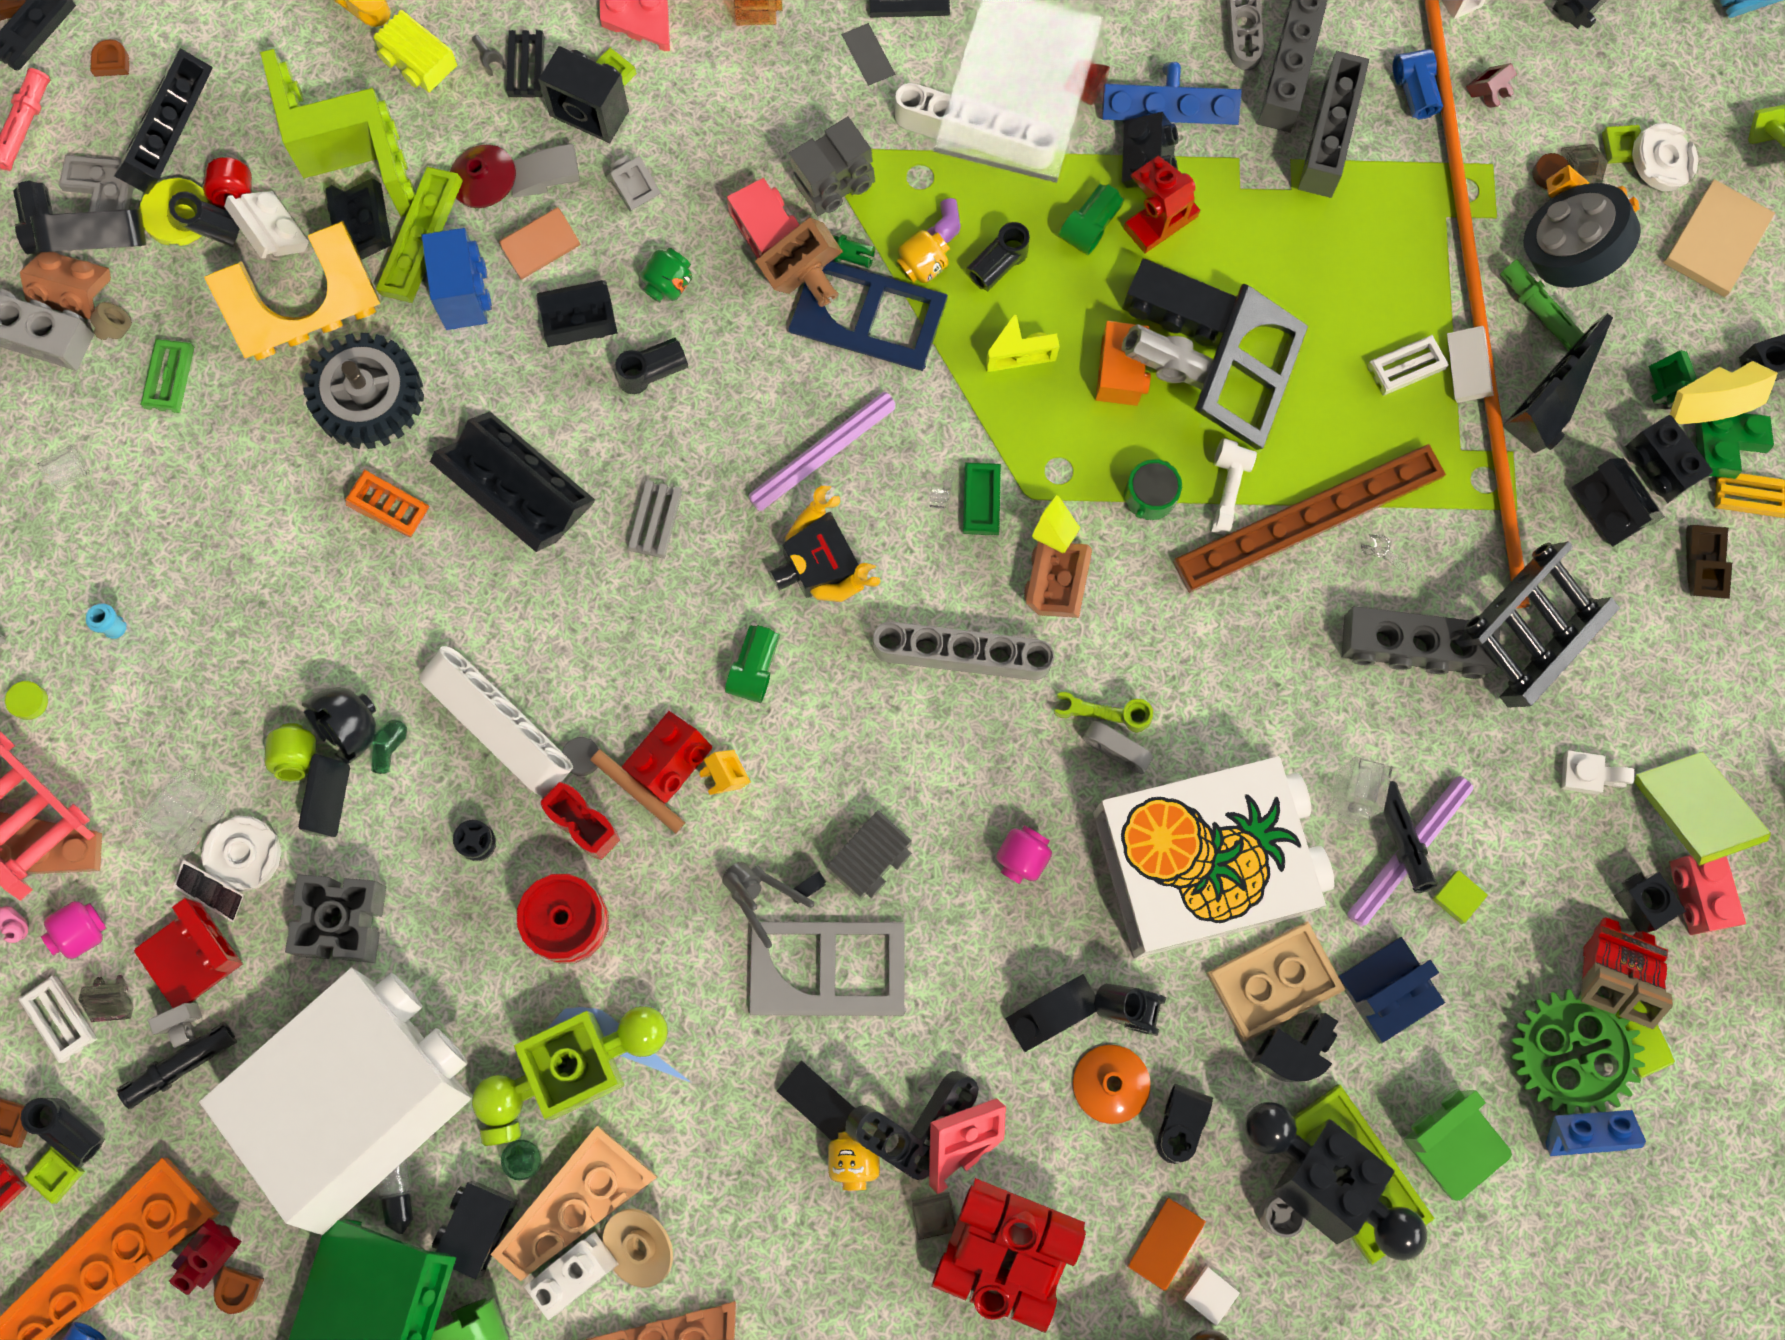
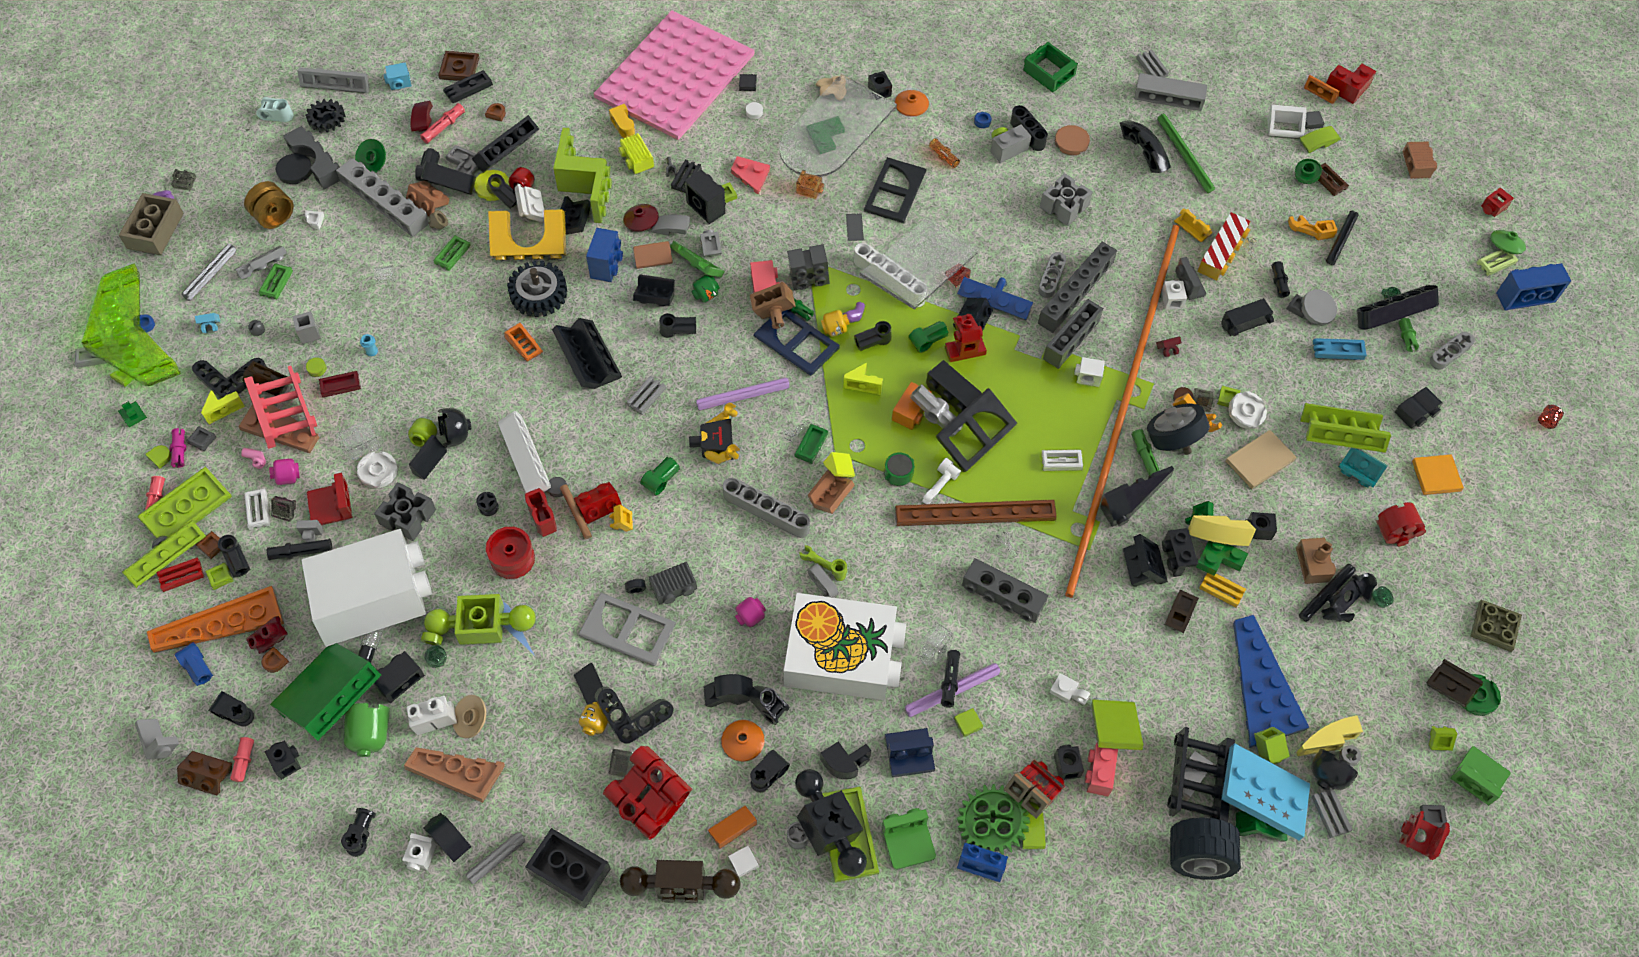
camera: 25 degrees right, 15 degrees down
(87, 716) = (339, 384): none -> dark red tile
(208, 890) = (354, 479): sticker -> none
(385, 743) = (467, 445): clear green arm -> none
(426, 215) = (610, 221): lime plate -> none
(580, 1195) = (453, 682): light nougat wing -> none
(625, 226) = (697, 261): none -> bright green wing
(745, 887) = (605, 573): dark grey plant -> none
(963, 1139) = (653, 731): coral wing -> none
(1275, 981) = (851, 724): tan tile -> none
(1388, 184) = (1089, 371): none -> white brick
(1417, 75) = (1130, 328): blue piece -> none
(1470, 364) = (1094, 470): white tile -> none
(1568, 637) = (1083, 614): black fence -> none

